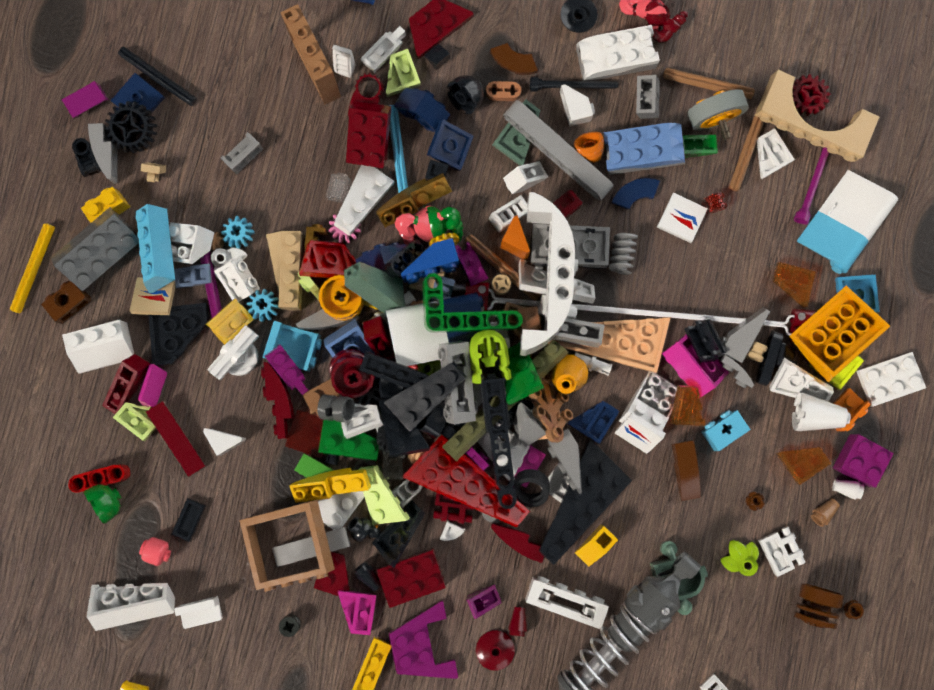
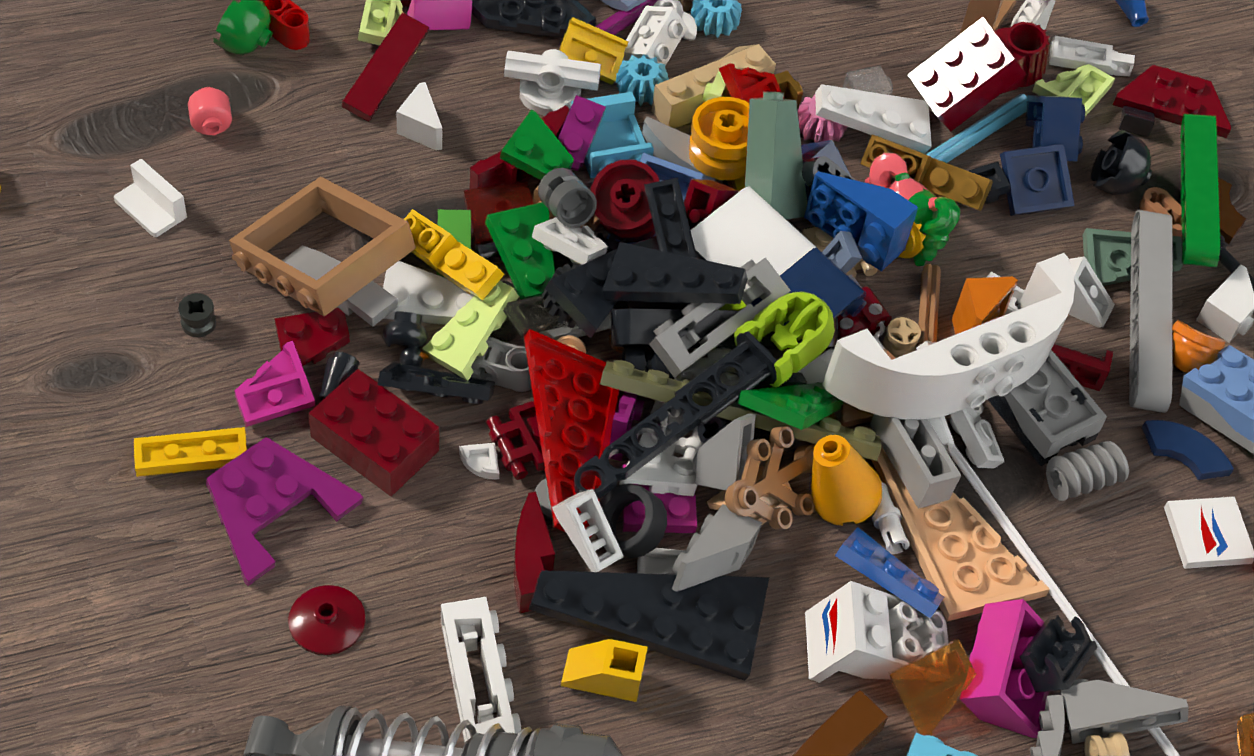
camera: 55 degrees right, 30 degrees down
(128, 604) = (112, 113): white wedge -> none
(188, 519) = (279, 134): black tile -> none
(288, 398) = (535, 148): none -> green wing
(462, 317) = (819, 275): green beam -> none
(471, 265) = (896, 280): magenta hinge -> none
(483, 601) = (398, 549): magenta slope -> none
(506, 67) = (1199, 191): none -> green beam
(518, 515) = (573, 526): none -> white slope
(518, 622) = (395, 623): dark red cone -> none
(595, 421) = (801, 569): dark blue wing -> none
(622, 387) = (886, 570): none -> blue wing

